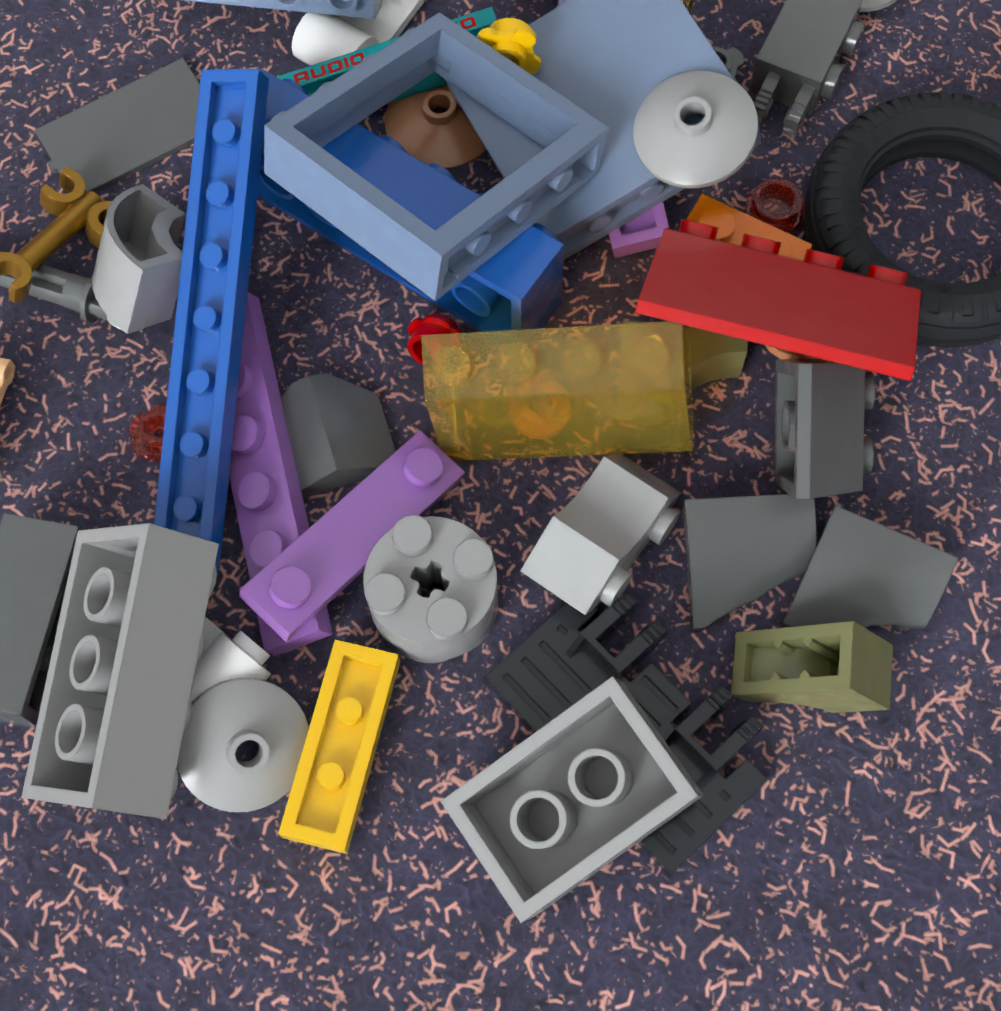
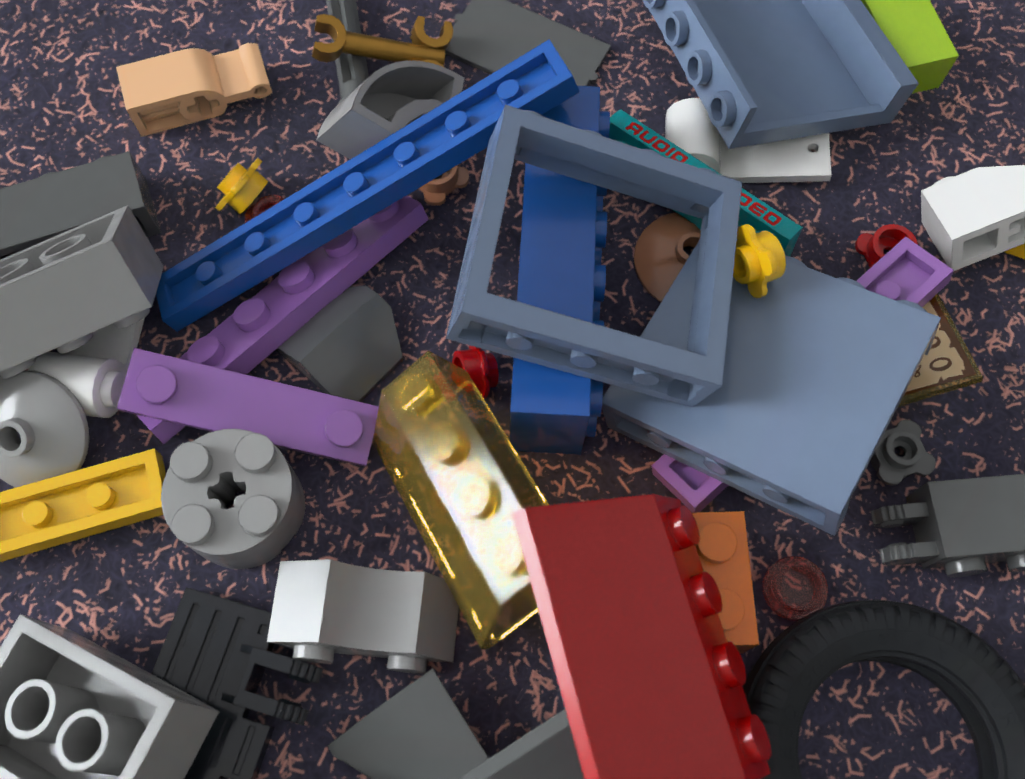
camera: 55 degrees right, 0 degrees up
(107, 440) = (241, 186): none -> yellow plate
(700, 152) = (788, 494): light grey dish -> none

